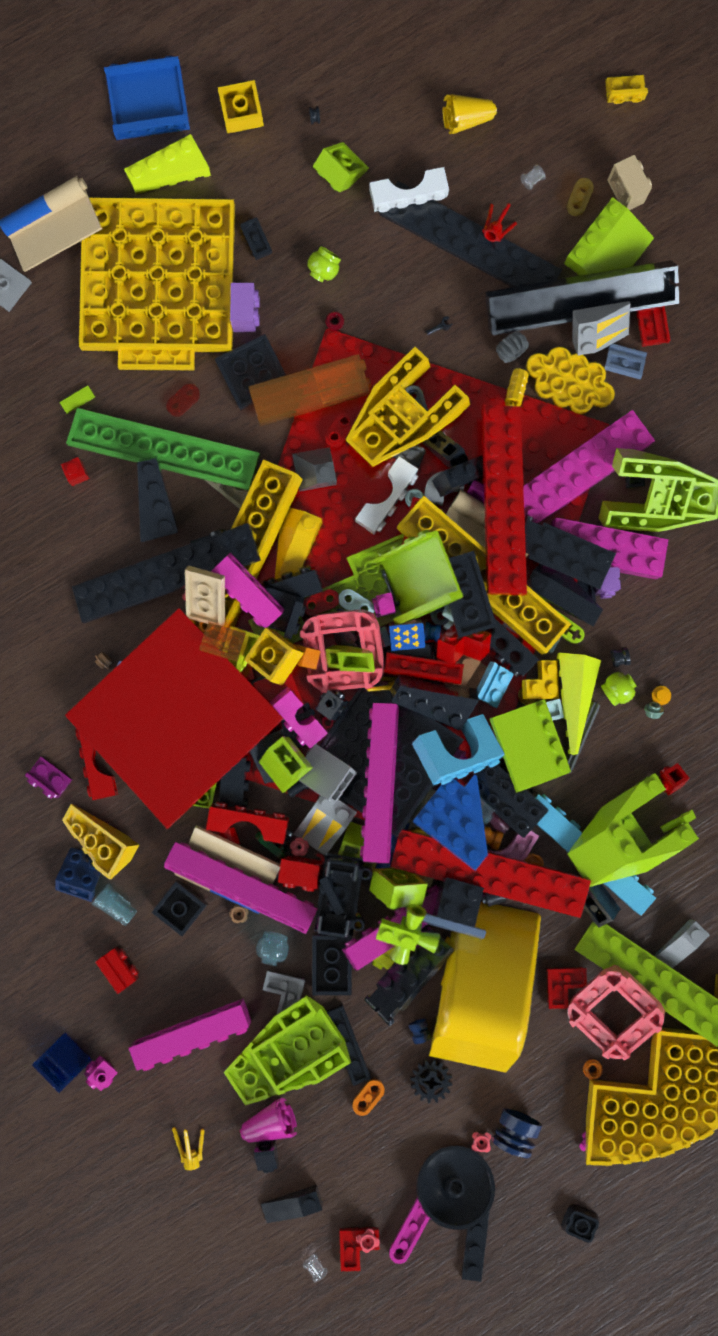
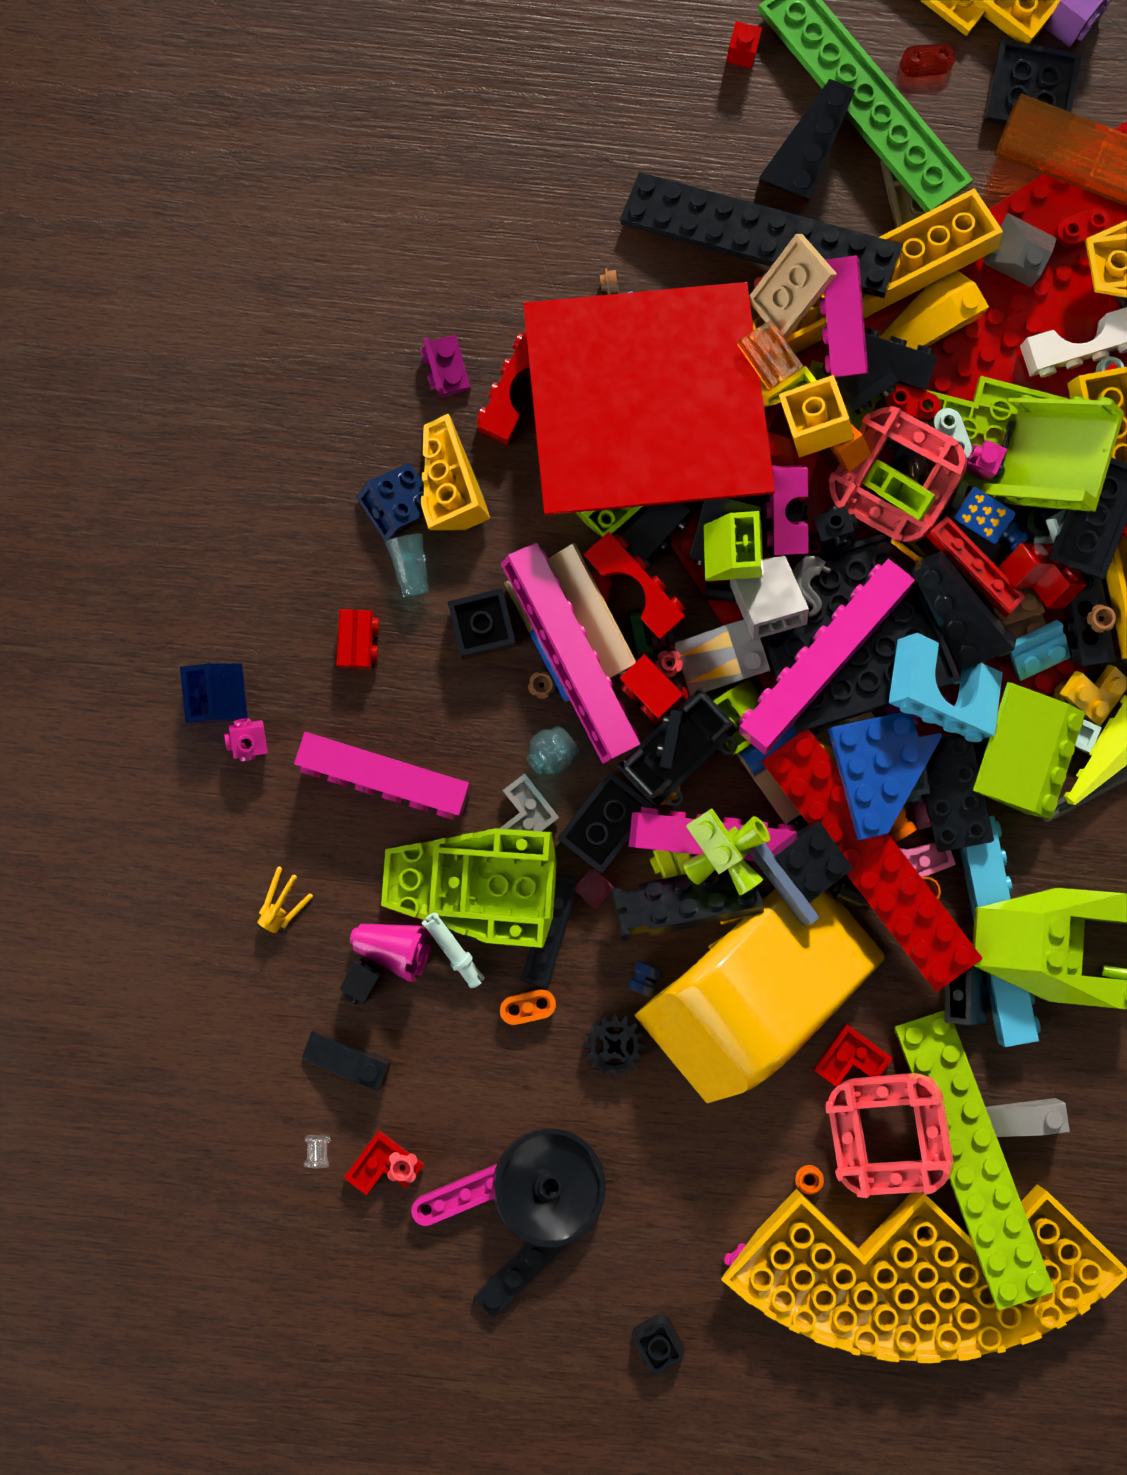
camera: 40 degrees right, 0 degrees up
(311, 1101) = (459, 958): none -> light aqua pin
(335, 747) = (804, 573): none -> dark grey piece
(354, 1004) = (594, 888): none -> clear pink plate
(397, 887) = (752, 790): lime brick -> none
(485, 1147) = (624, 1160): coral plate -> none
(515, 1136) = (667, 1181): dark blue wheel -> none
(518, 643) = (1108, 618): none -> medium nougat plate

